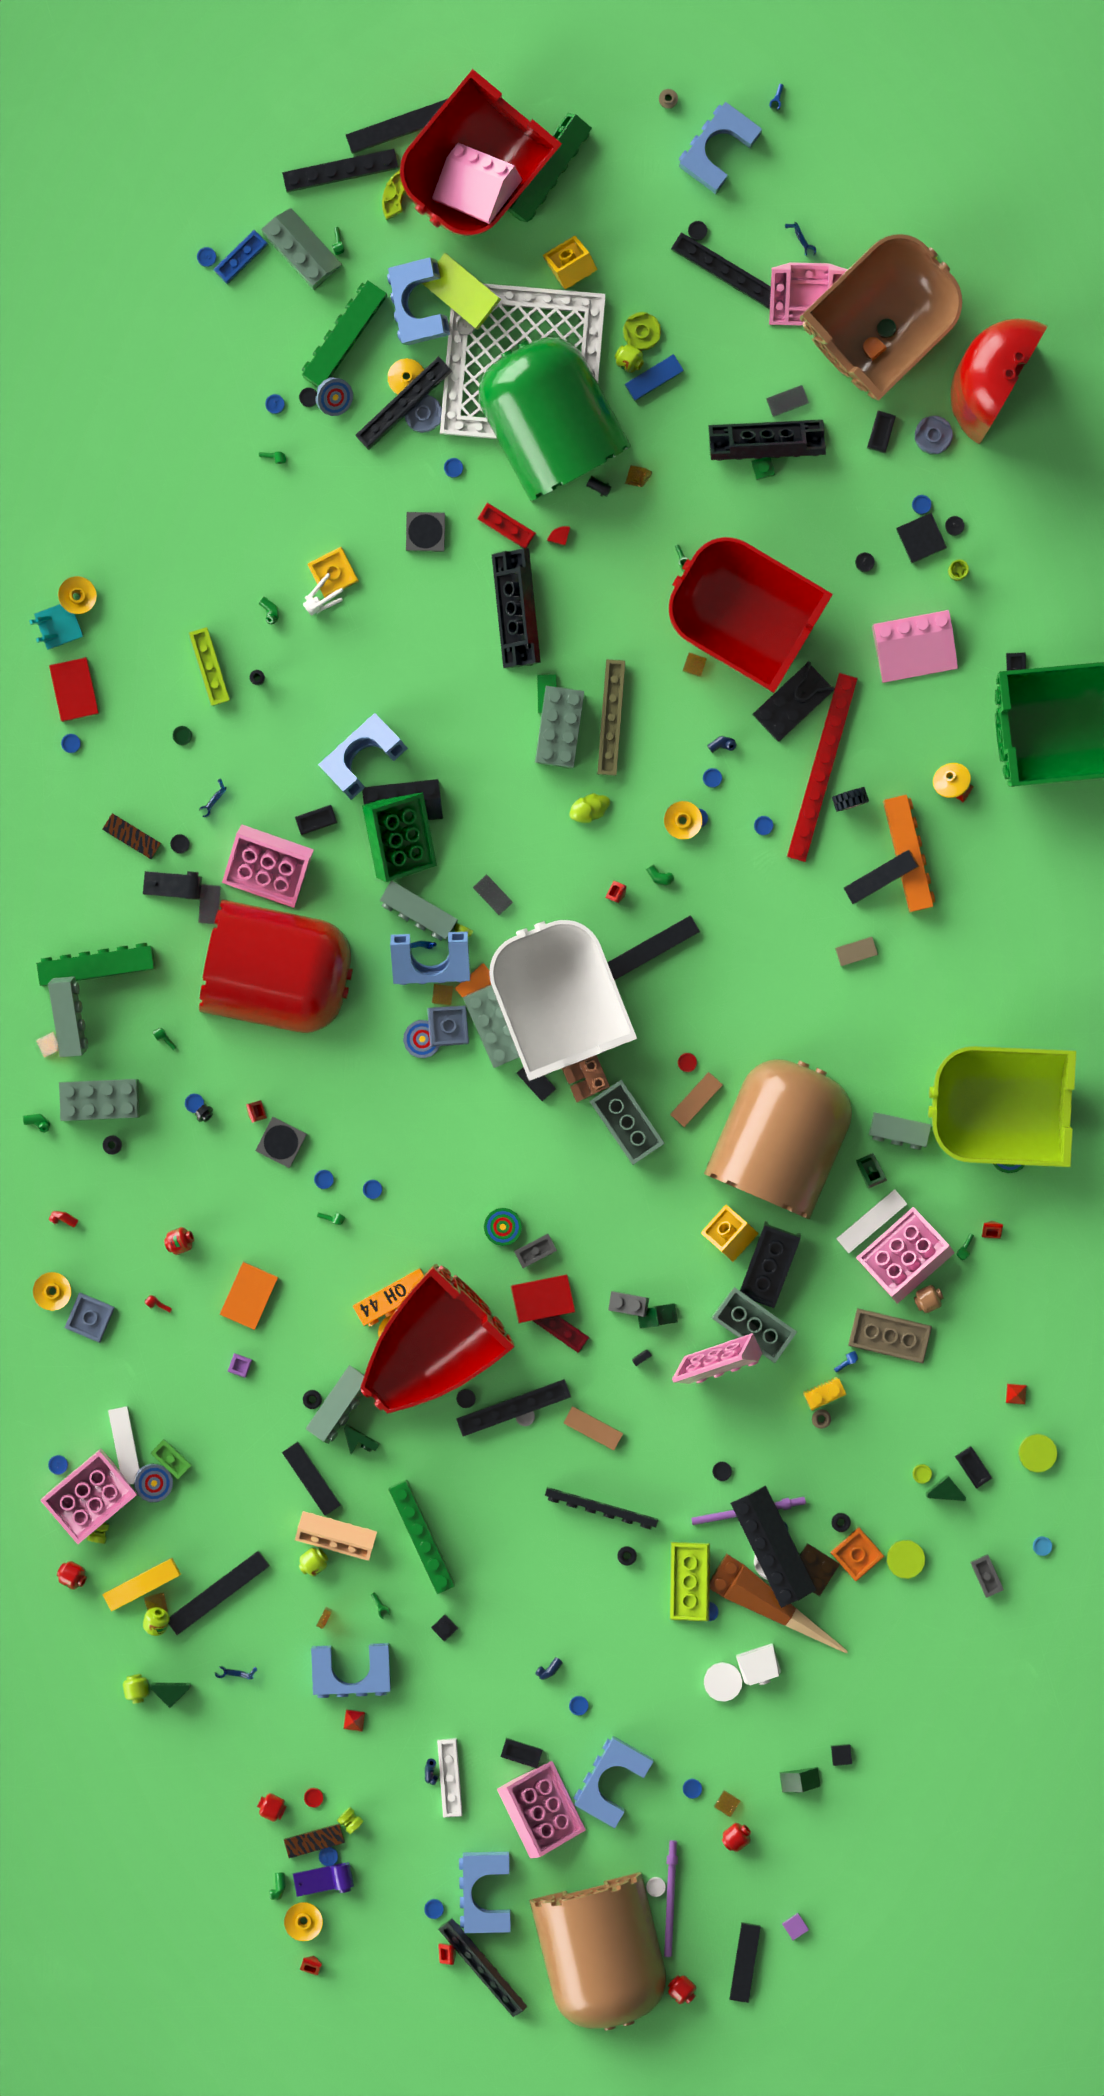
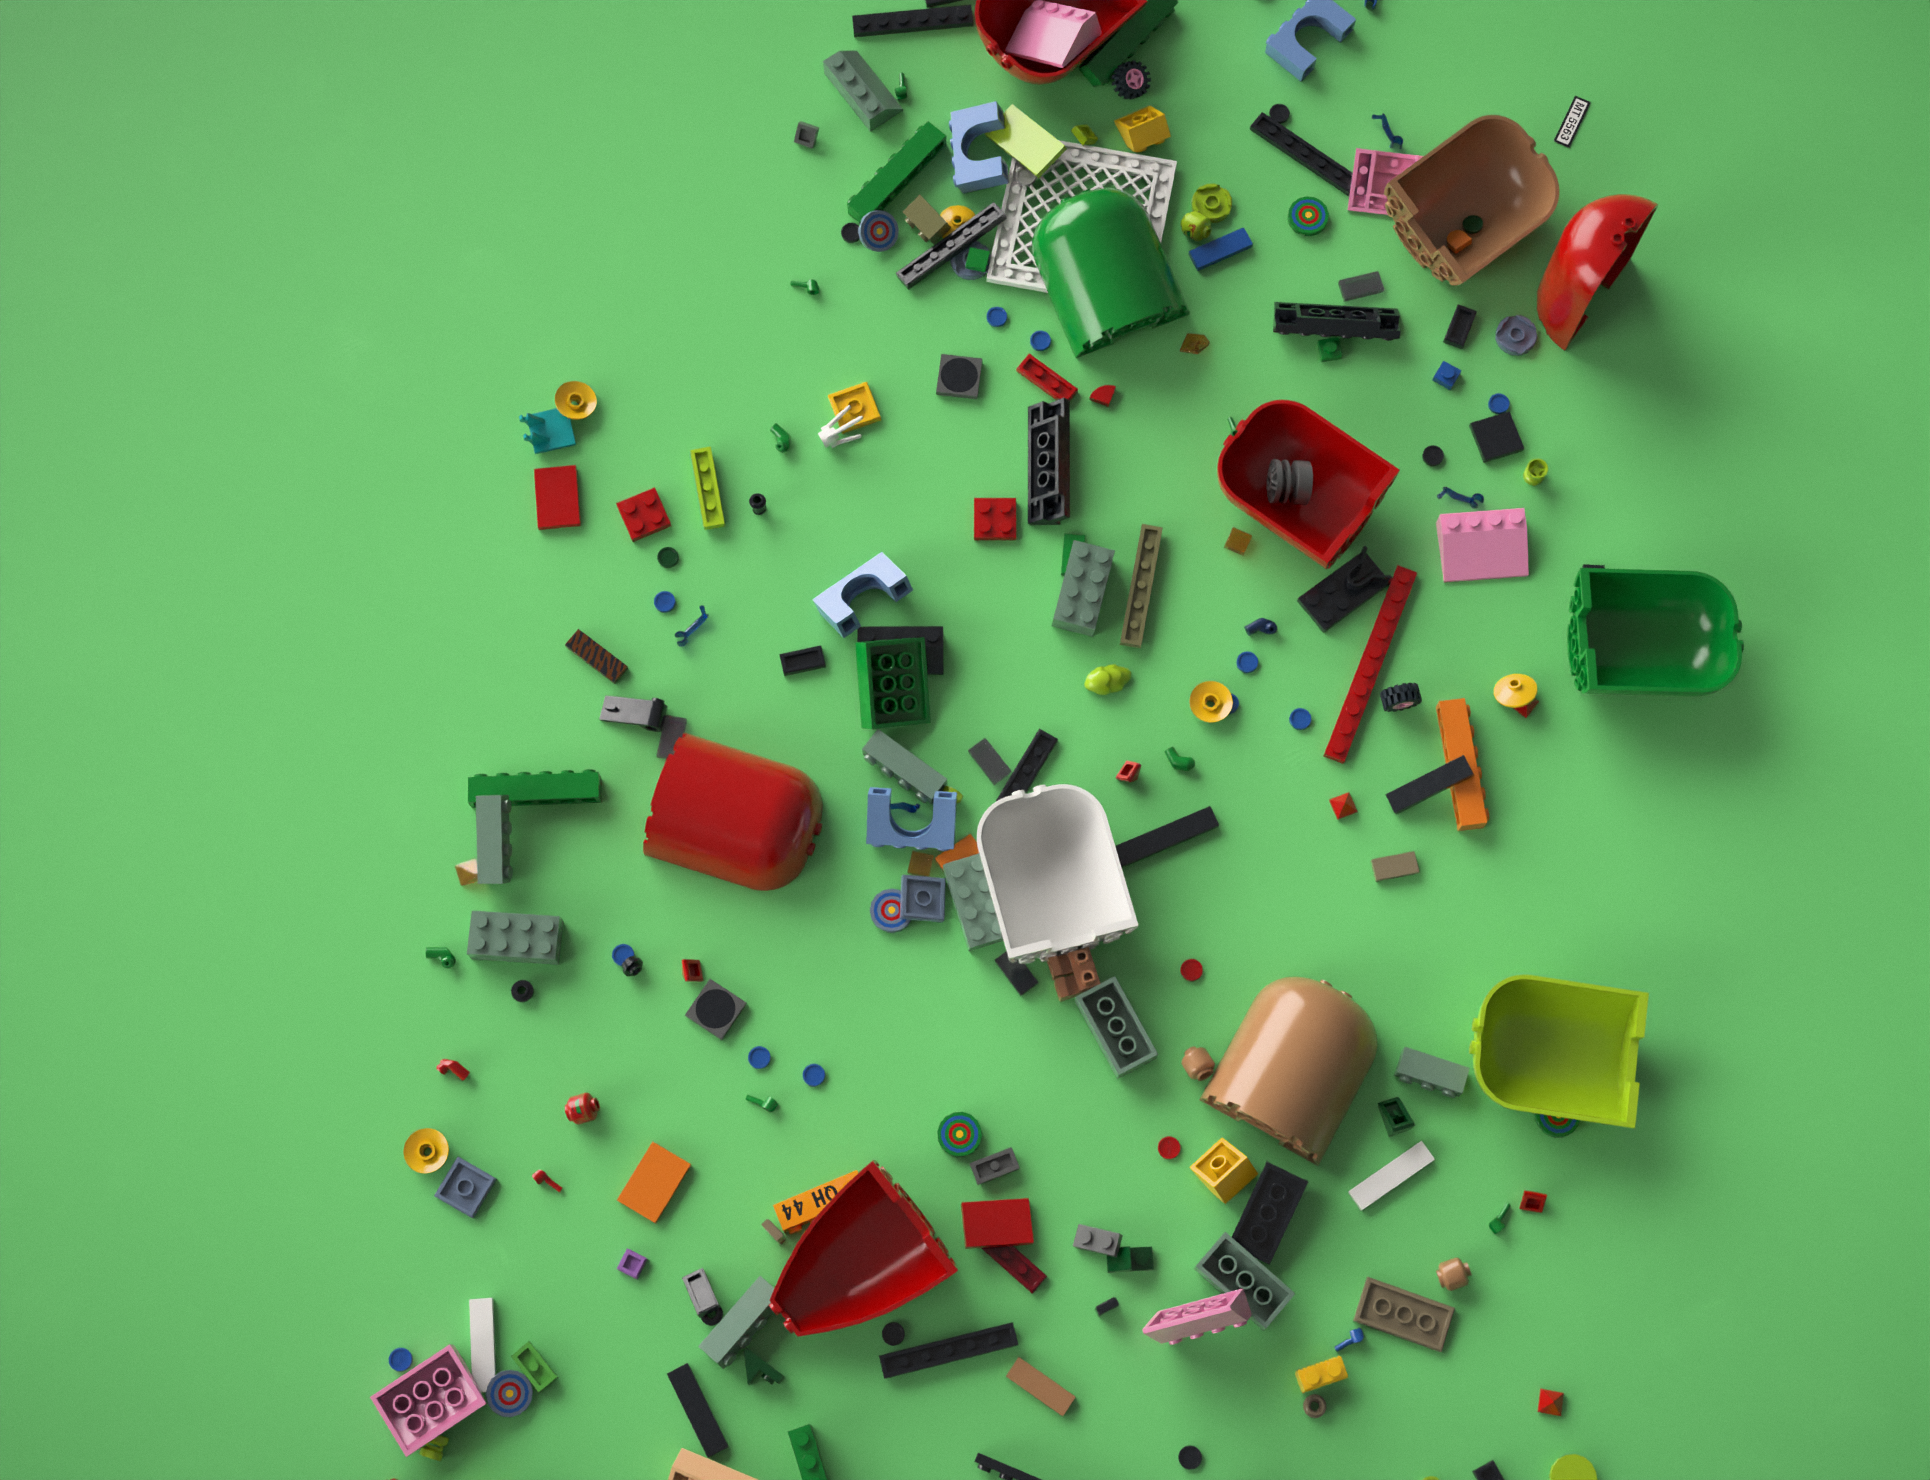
camera: 10 degrees right, 15 degrees down
(71, 743) = (545, 553): blue piece -> none
(154, 697) = (643, 514): none -> red plate
(160, 1033) = (595, 873): green hand -> none
(180, 843) = (648, 670): black piece -> none
(185, 777) = (664, 601): none -> blue piece
(206, 256) = (762, 88): blue piece -> none
(240, 257) = (798, 91): blue tile -> none
(254, 303) = (806, 134): none -> dark grey plate
(267, 866) = (741, 702): bright pink slope -> none
(274, 404) = (814, 235): blue piece -> none
(301, 1383) = (701, 1292): none -> tile
(356, 1328) = (776, 1234): none -> dark tan tile
(376, 380) = (927, 220): none -> olive piece
(393, 196) = (964, 49): lime tile -> none
(429, 415) = (977, 259): none -> green tile
(473, 667) = (994, 518): none -> red plate
(496, 487) = (1040, 340): none -> blue piece
(516, 275) = (1084, 134): none -> lime tile
(526, 898) = (1030, 764): none -> black tile
(526, 1419) = (961, 1367): light grey piece -> none
(560, 217) = (1138, 79): none -> black wheel
(599, 486) = (1151, 349): black pin -> none
(681, 1218) = (1168, 1147): none -> red piece
(696, 1099) = (1198, 1012): medium nougat tile -> none
(699, 1144) = (1198, 1063): none -> medium nougat head
(732, 335) = (1308, 216): none -> green tile
(738, 609) = (1289, 482): none -> dark grey wheel
(807, 901) = (1343, 805): none -> red slope
(872, 482) = (1446, 375): none -> blue plate
(891, 600) = (1460, 497): none -> piece
(905, 1255) = (1429, 1219): bright pink slope -> none
(954, 525) = (1533, 428): black piece -> none
(974, 208) = (1572, 121): none -> sticker

